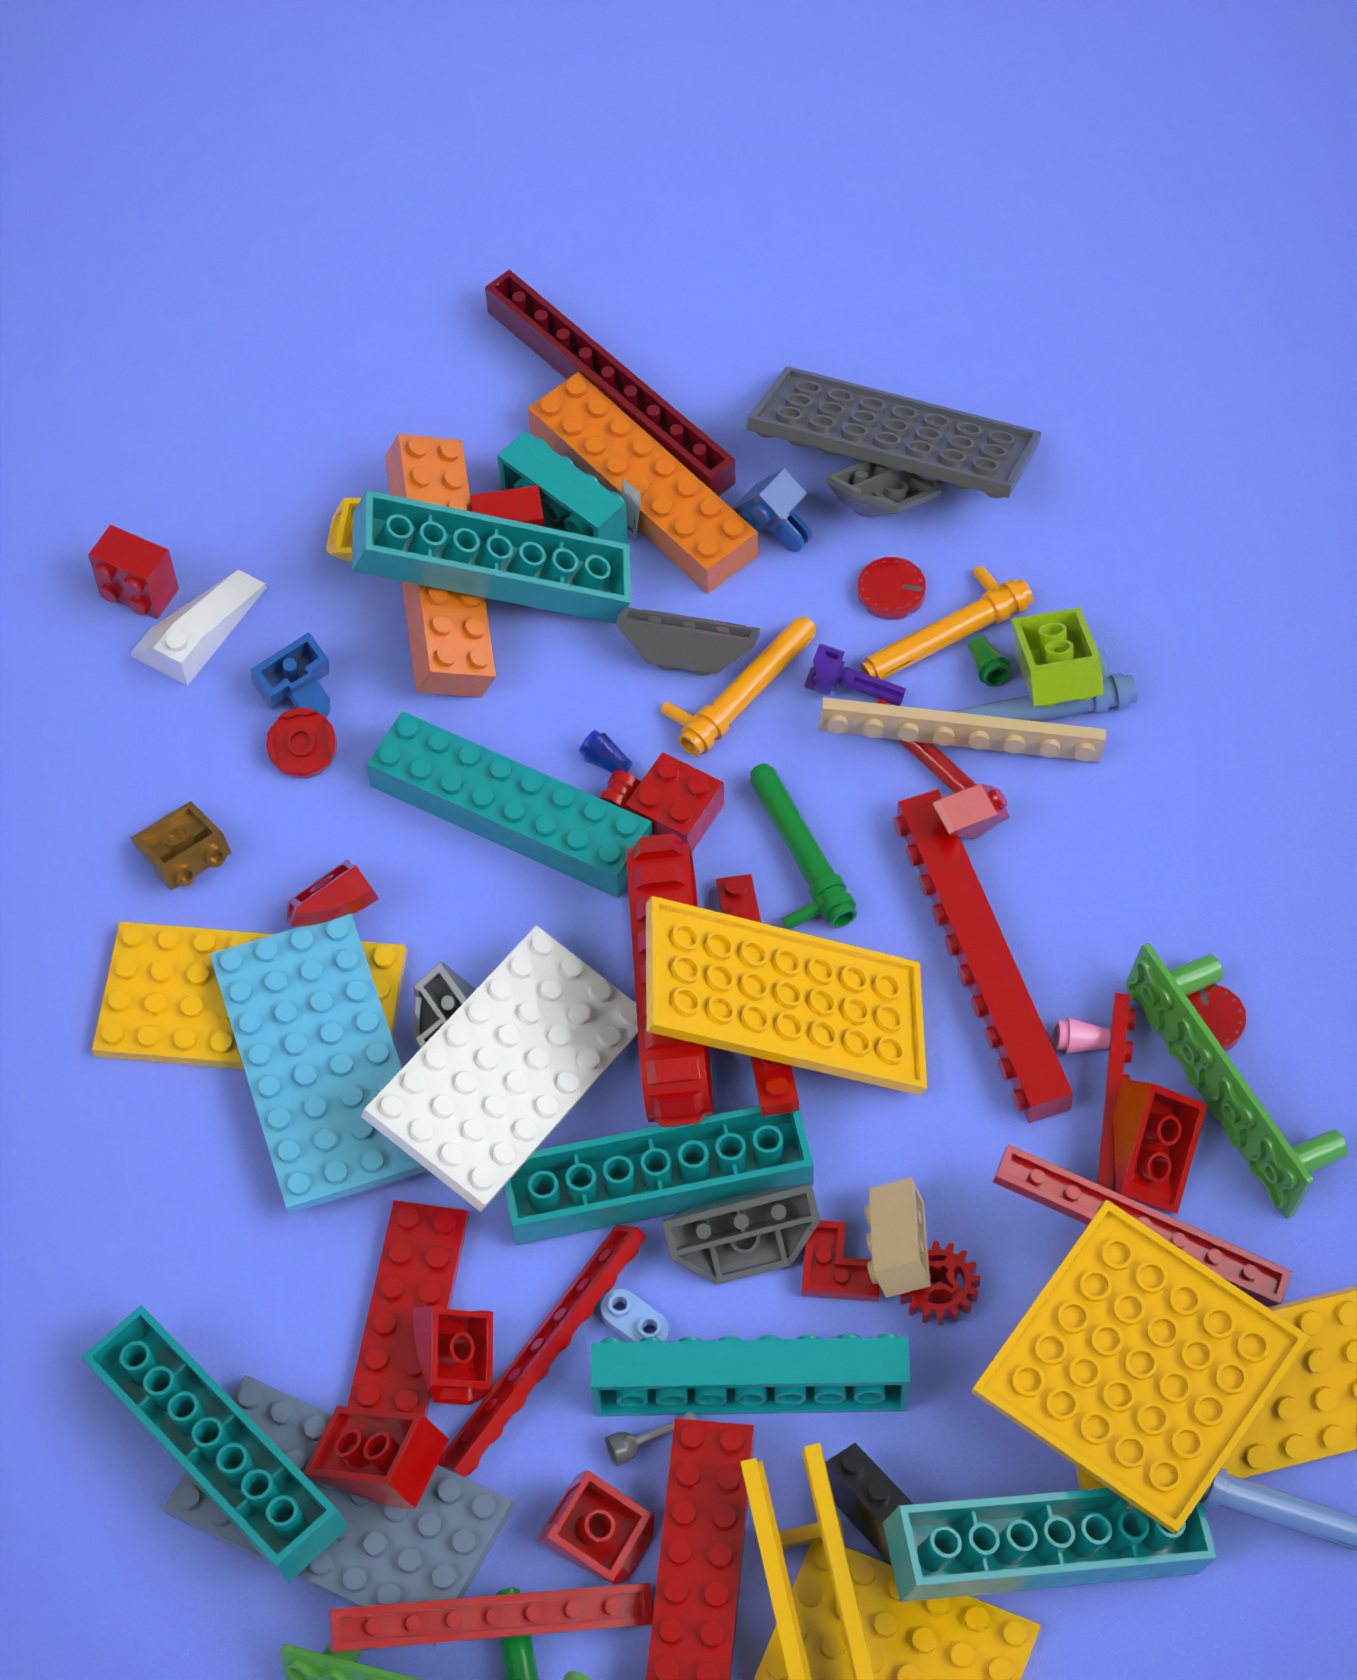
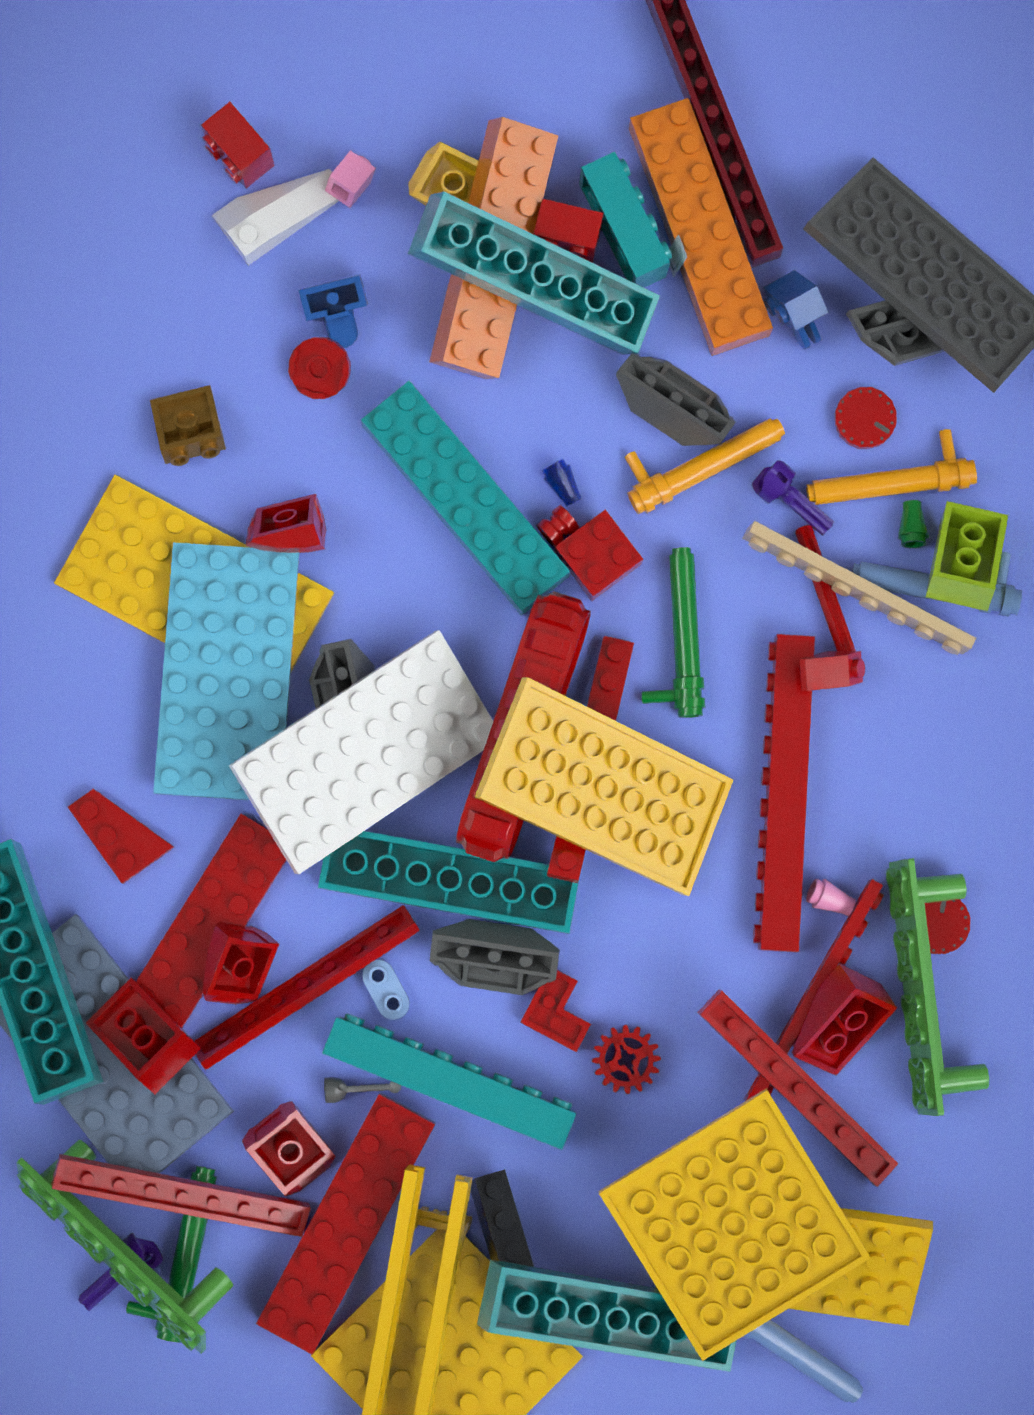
camera: 15 degrees right, 25 degrees up
(262, 1278) = (118, 836): none -> red wing
(263, 564) = (350, 178): none -> bright pink brick
(897, 1238) = (608, 1017): tan brick -> none

